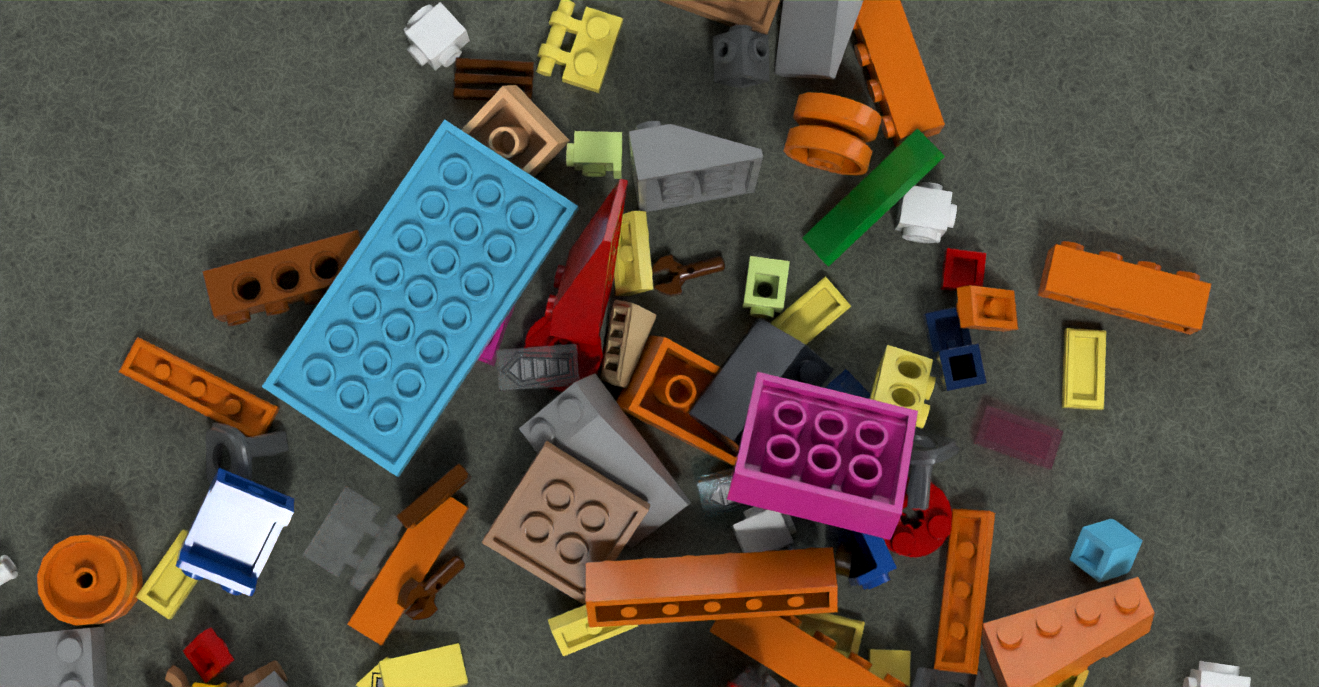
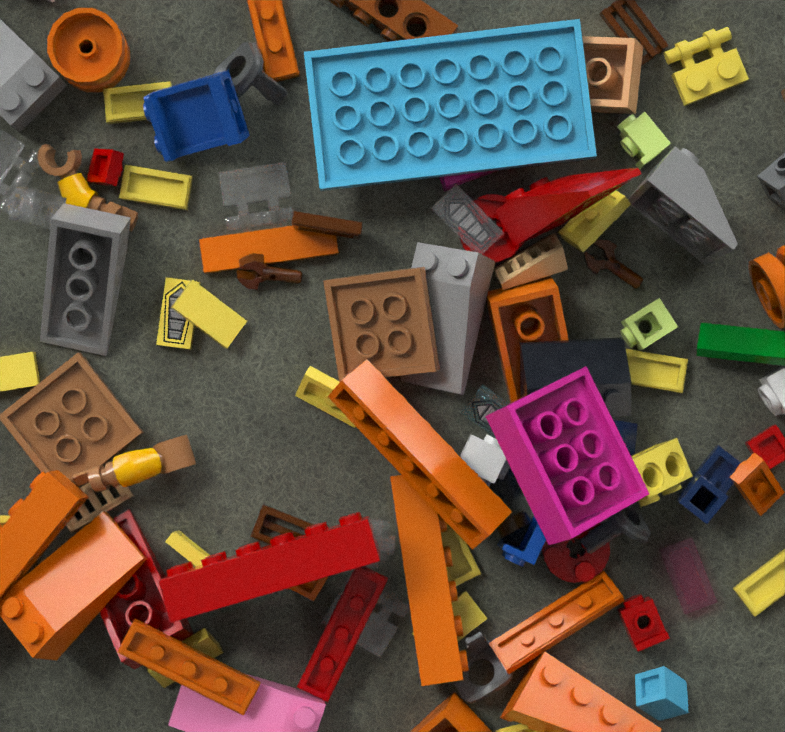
camera: 50 degrees right, 5 degrees up
(266, 624) = (155, 187): none -> light yellow tile
(1044, 519) = (642, 637): none -> red brick

